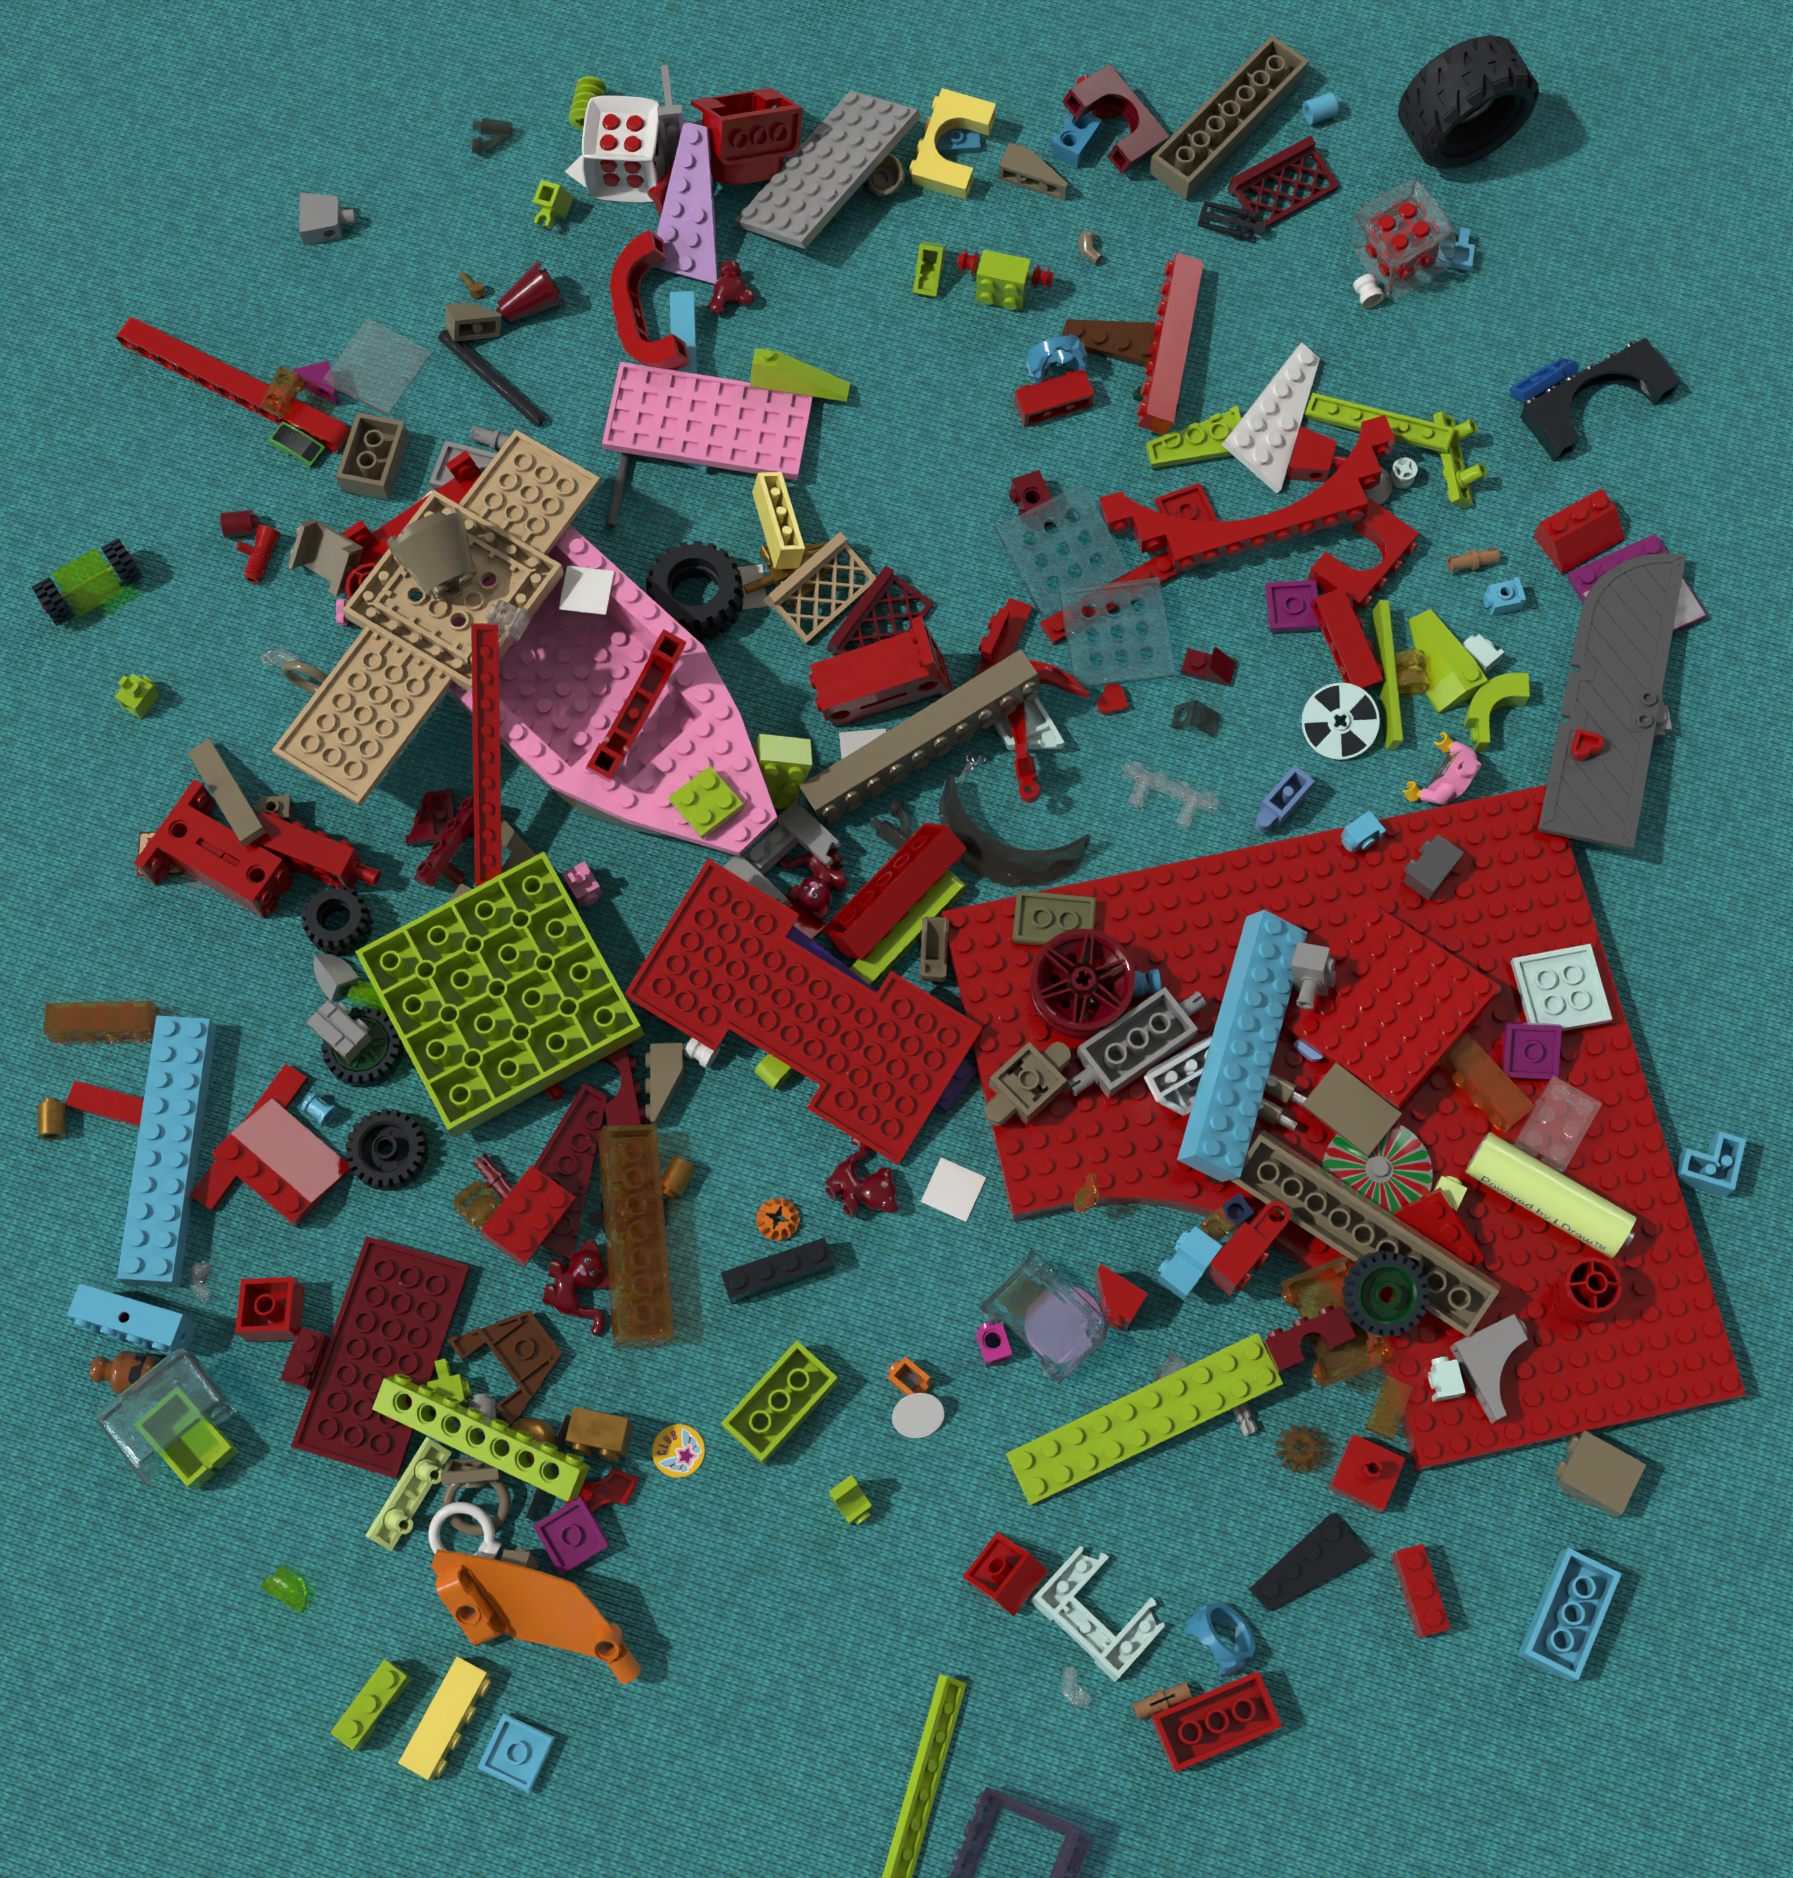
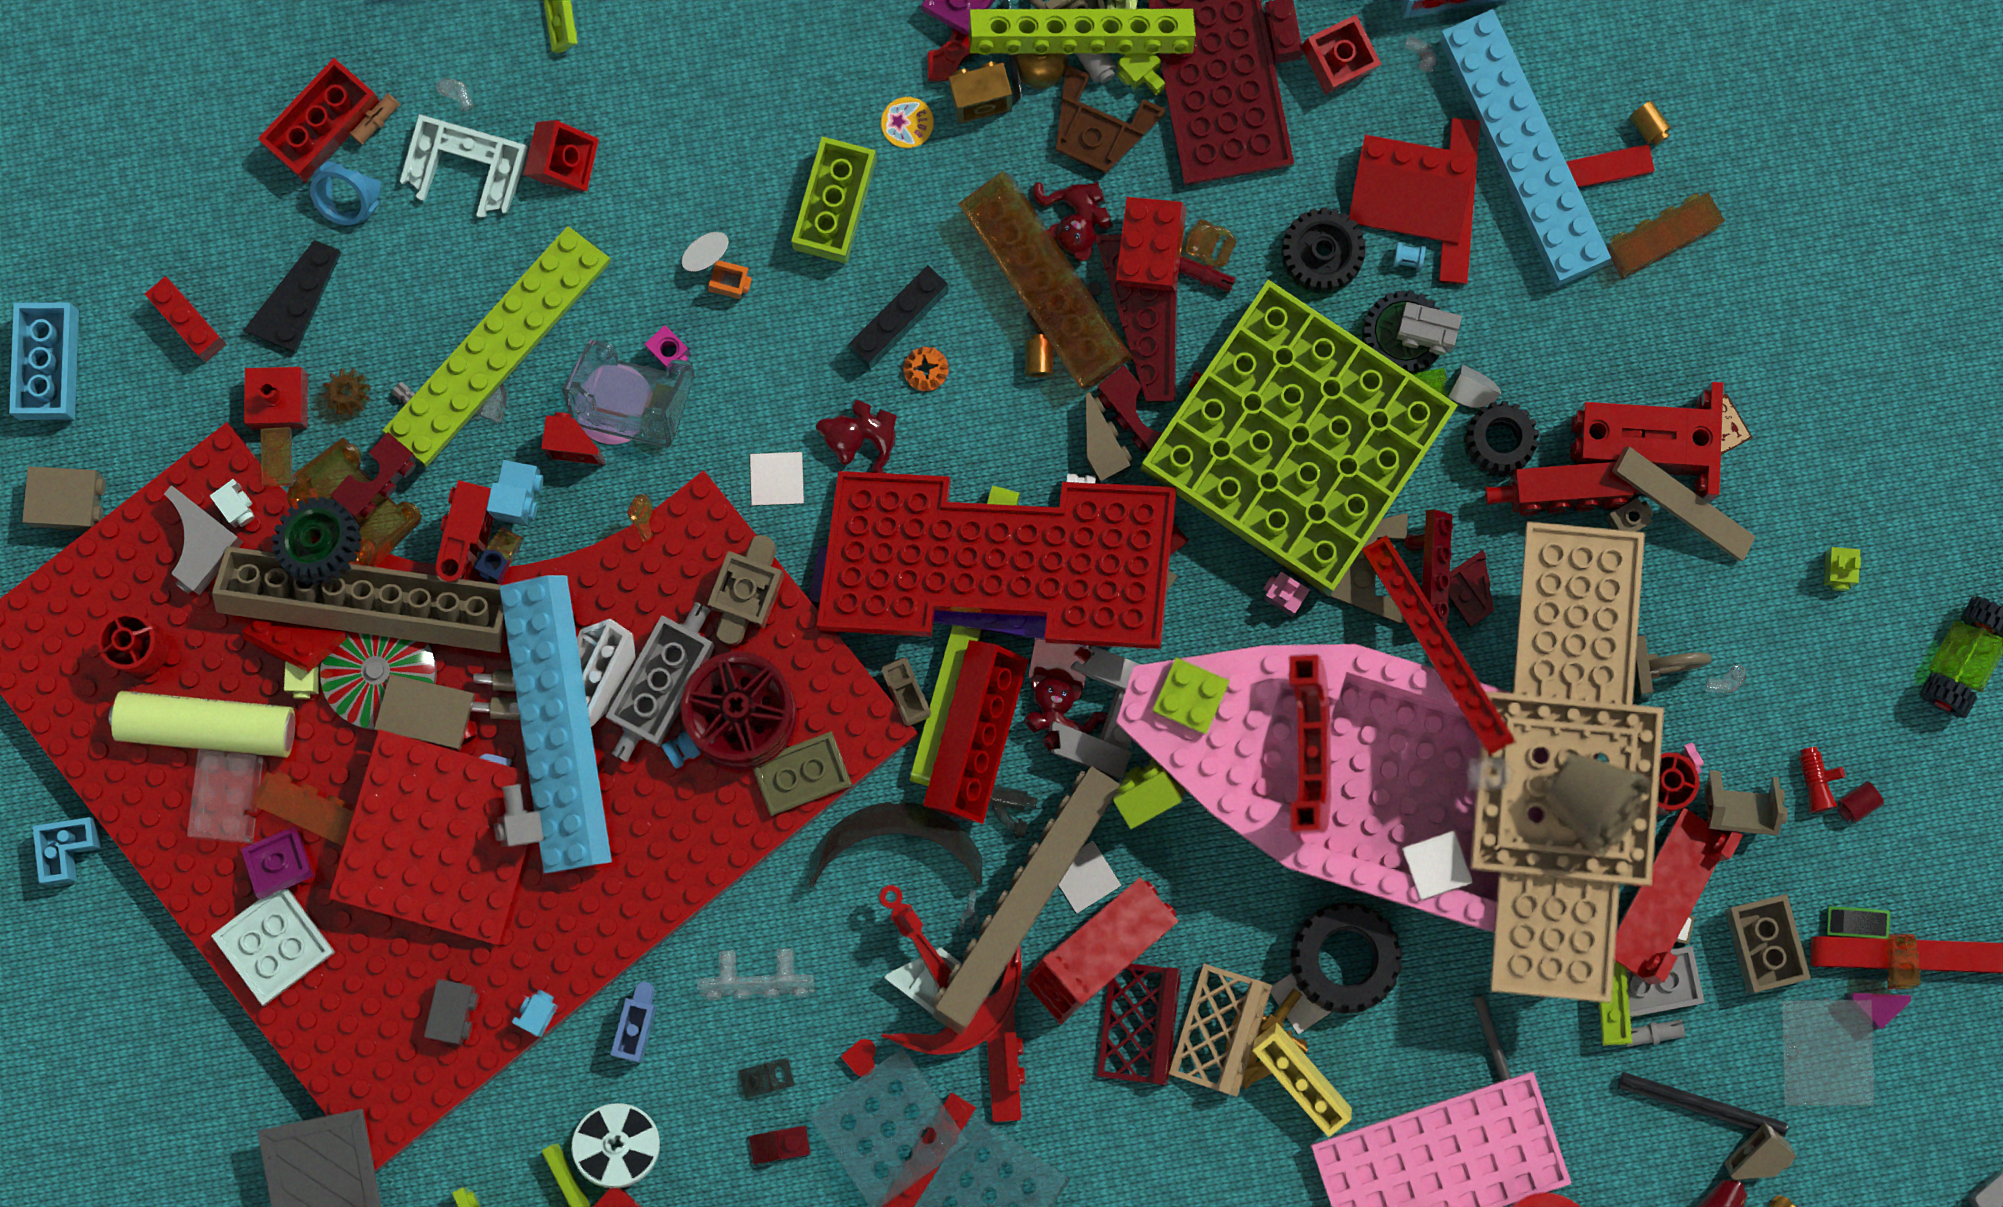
camera: 155 degrees right, 10 degrees up
(851, 1501) = (728, 148): lime arch -> none
(1451, 777) = (475, 1139): bright pink torso -> none

